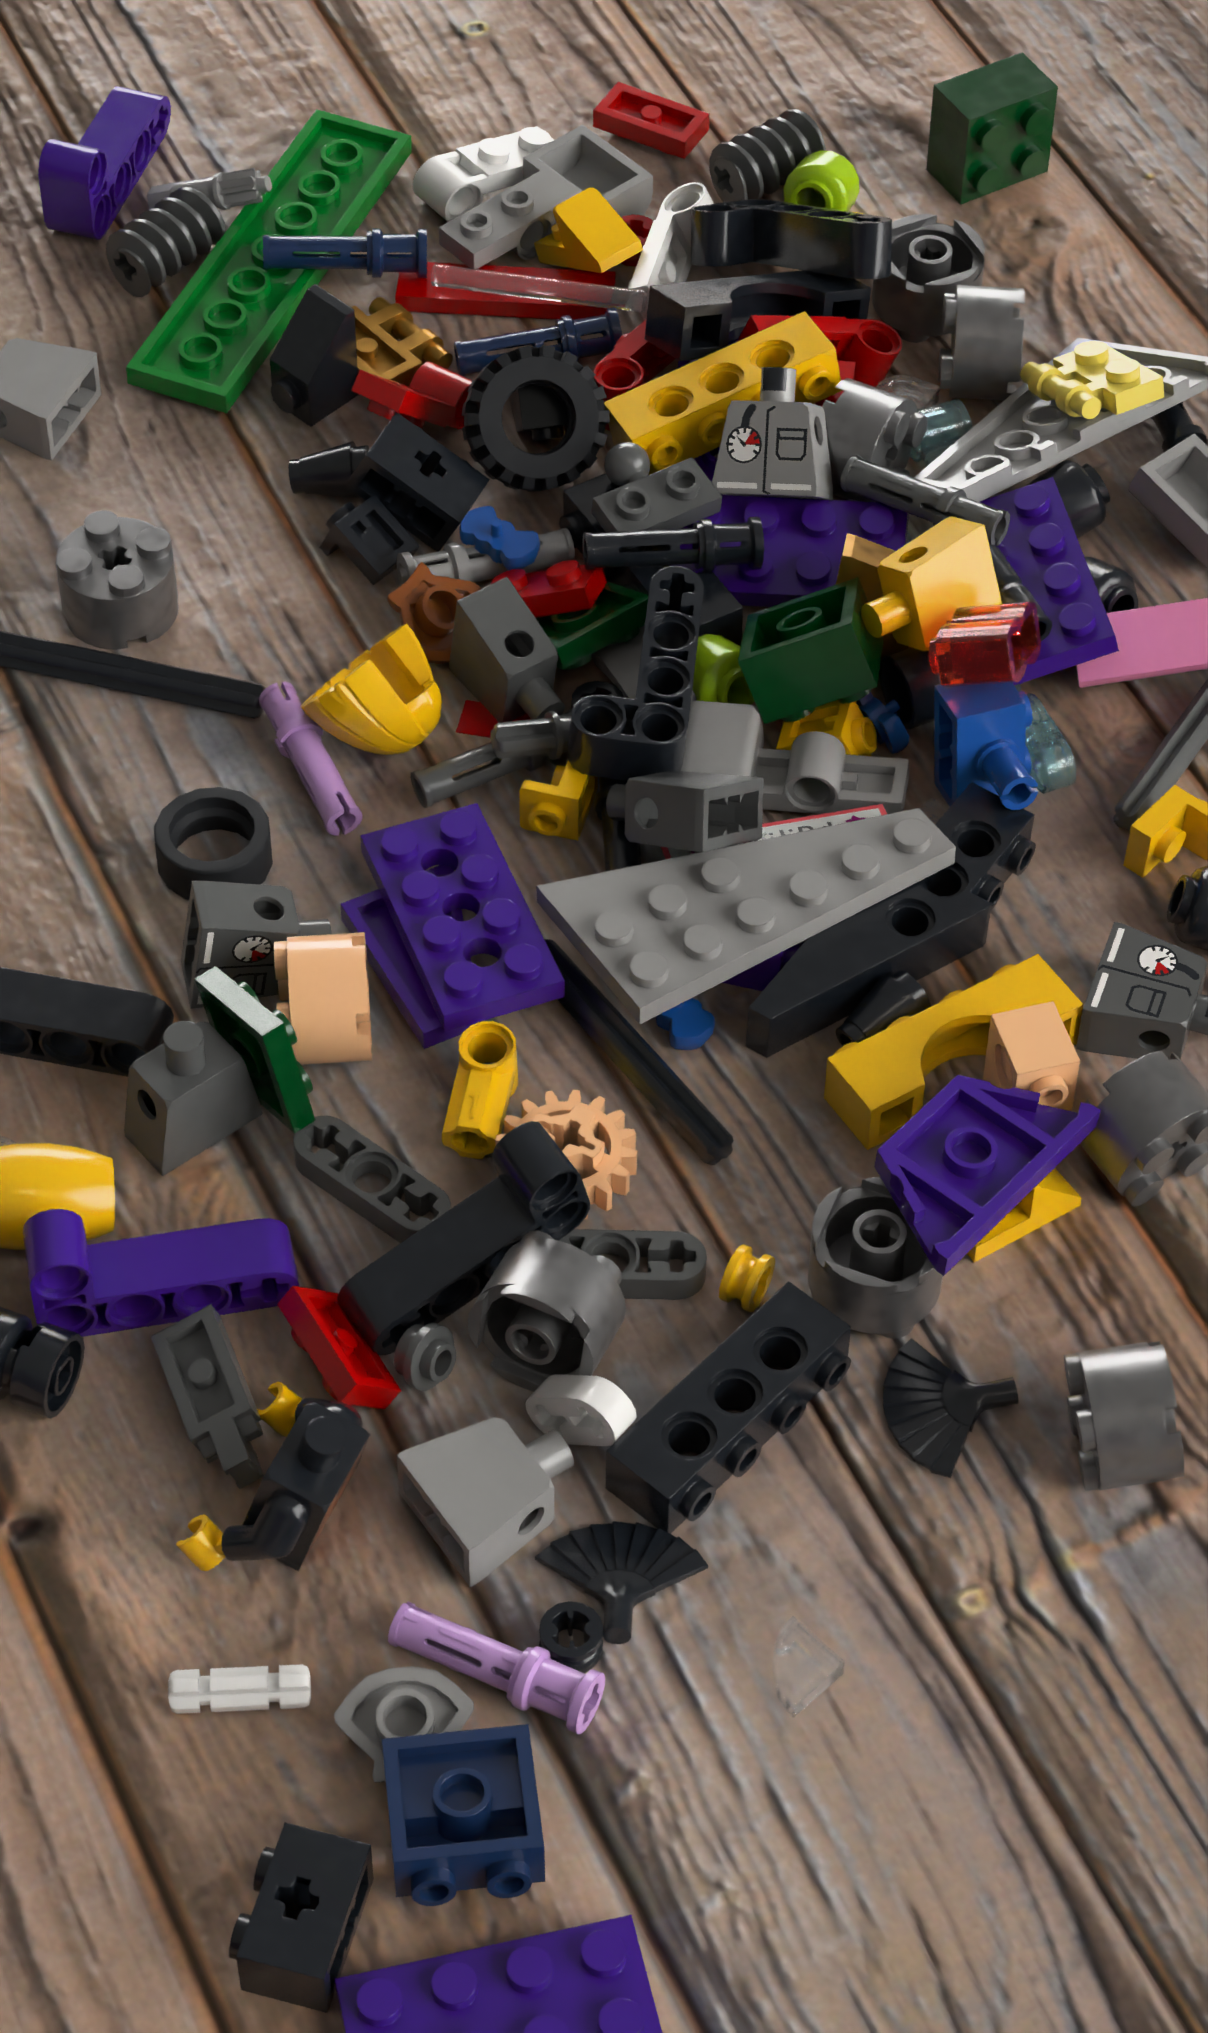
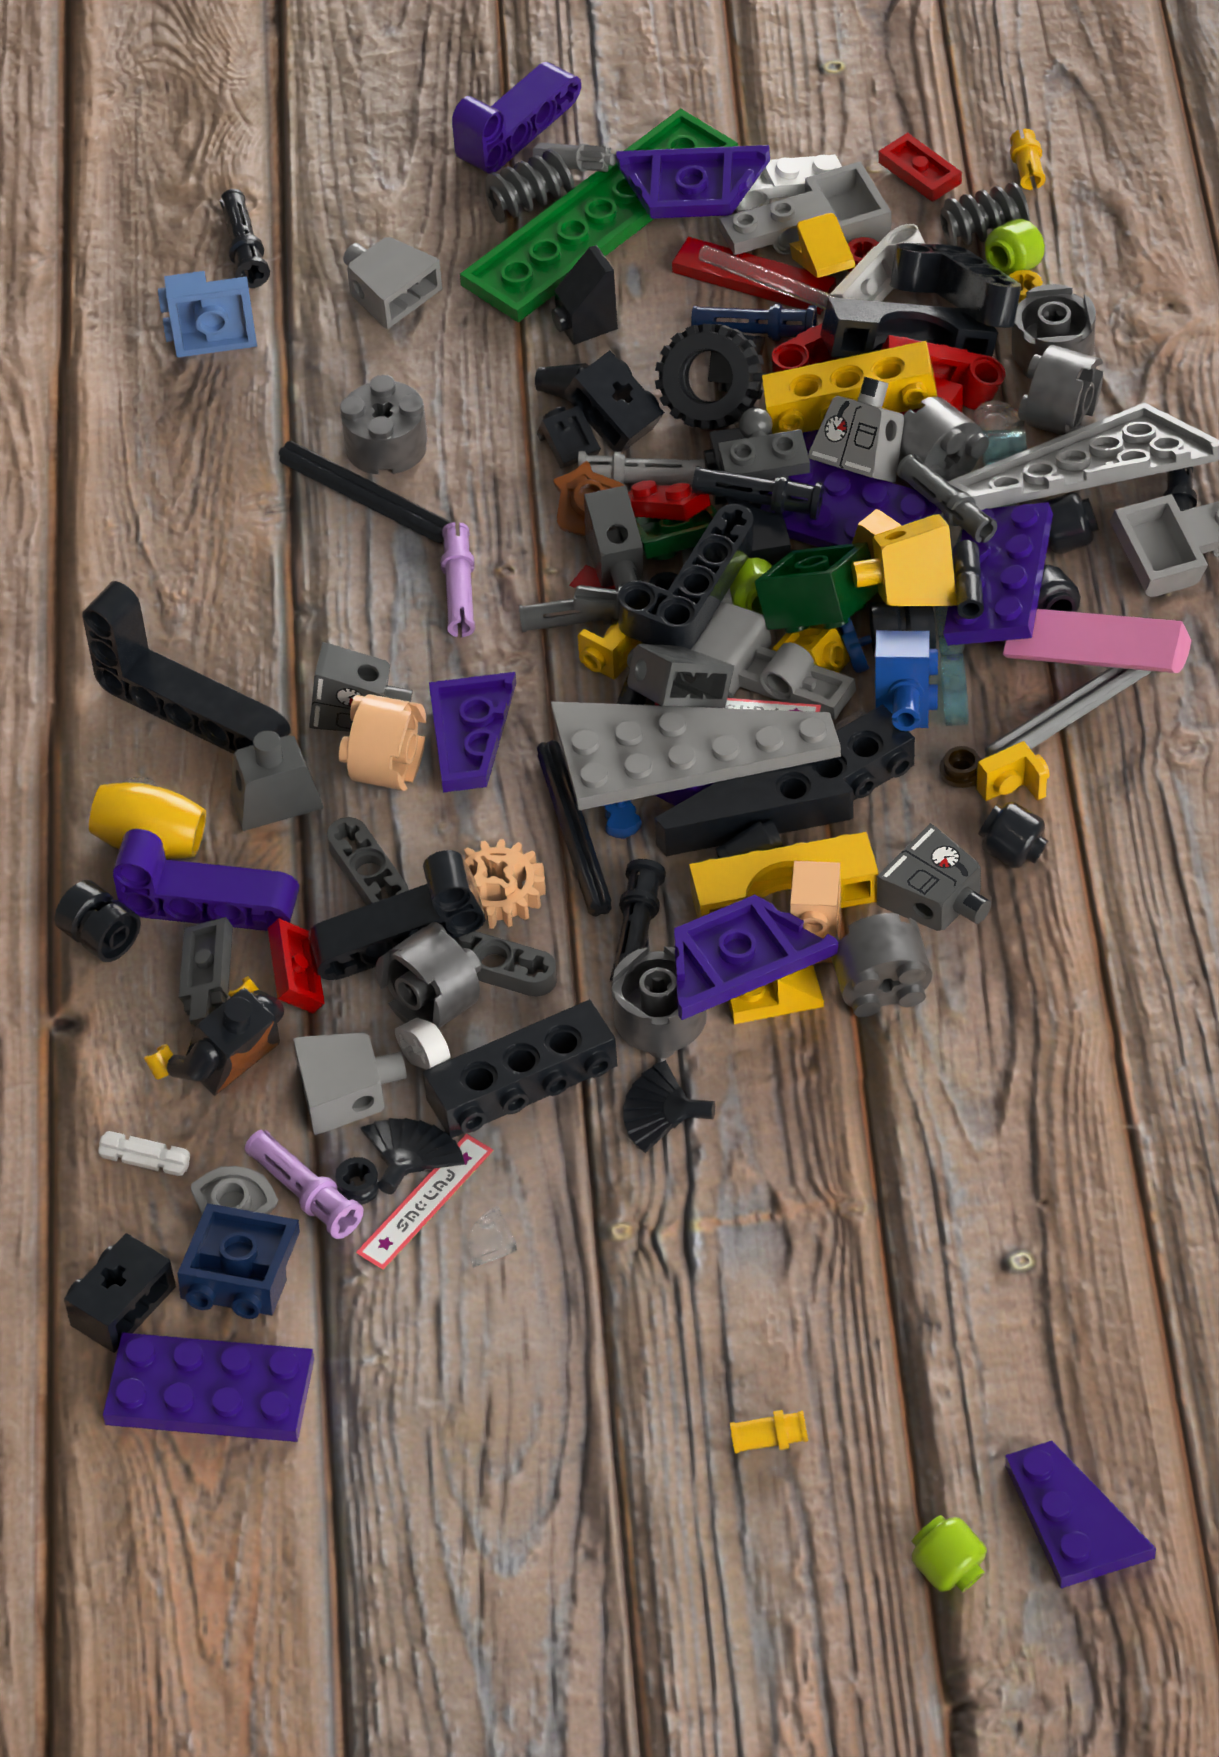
camera: 25 degrees right, 0 degrees up
(205, 811) = (365, 599): black tyre -> none
(264, 1044) = (323, 761): dark green plate -> none
(279, 252) = (664, 227): dark blue pin -> none
(382, 353) = (636, 305): pearl gold plate -> none
(382, 699) = (517, 553): yellow hair -> none
(383, 186) = (692, 179): none -> dark purple wing
(425, 1355) = (347, 985): dark grey plate -> none
(432, 396) = (633, 343): red plate -> none
(439, 943) = (521, 725): dark purple plate -> none
(481, 1090) = (468, 821): yellow piece -> none
(499, 538) = (650, 456): blue piece -> none
(675, 1648) = (422, 1205): none -> sticker
(746, 1278) = (573, 989): yellow bush -> none
(773, 80) = (1027, 154): none -> yellow pin
(775, 1136) = (638, 906): none -> black pin
(986, 644) = (919, 610): clear red brick -> none
(991, 127) = (1157, 228): dark green brick -> none
(1093, 380) = (1121, 437): light yellow plate -> none
(1097, 840) = (960, 767): none -> dark brown plate
(1124, 1416) = (763, 1141): flat silver brick -> none

